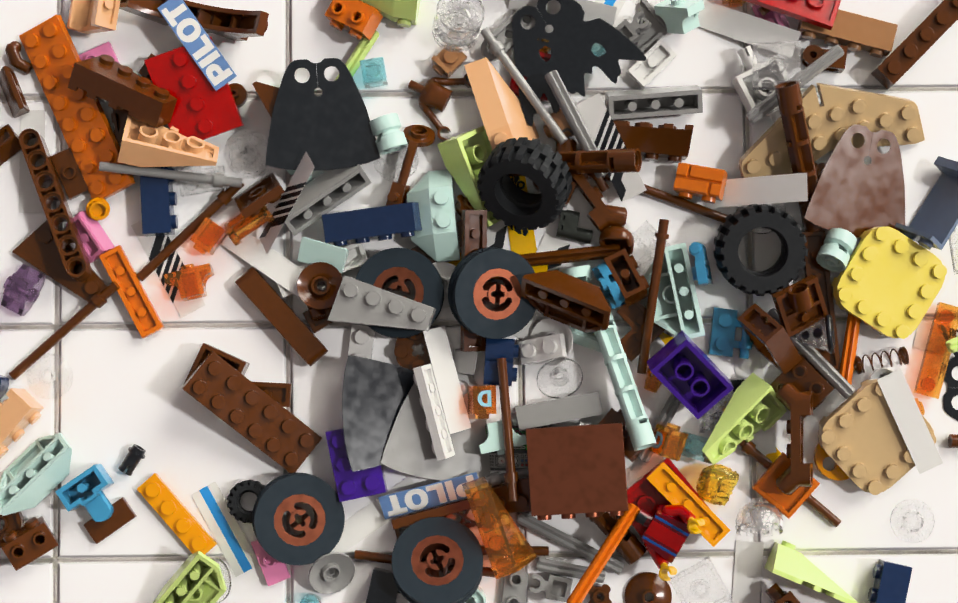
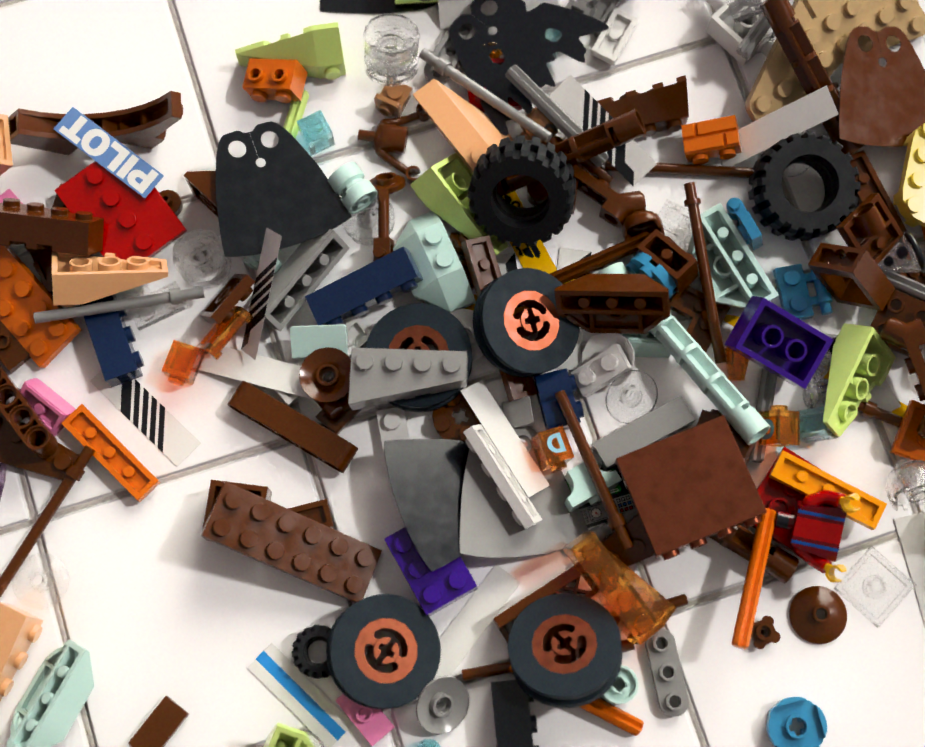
camera: 20 degrees left, 10 degrees down
(88, 492) = (122, 699): dark azure brick -> none
(97, 208) = (46, 372): light orange plate -> none
(134, 456) = (165, 644): black pin -> none
(176, 515) = (235, 695): light orange plate -> none
(190, 280) = (175, 418): clear orange brick -> none
(224, 198) = (187, 317): reddish brown bar -> none
(425, 496) = (523, 580): sticker -> none
(556, 587) = (709, 638): light grey plate -> none
(565, 569) = (711, 613): light grey axle -> none
(566, 540) = (701, 580): light grey axle -> none
(568, 227) = (584, 233): pearl dark grey piece -> none
(654, 102) = (634, 70): light grey brick -> none
(716, 484) = (850, 458): clear yellow hair -> none
(836, 250) = (886, 162): light aqua wheel -> none

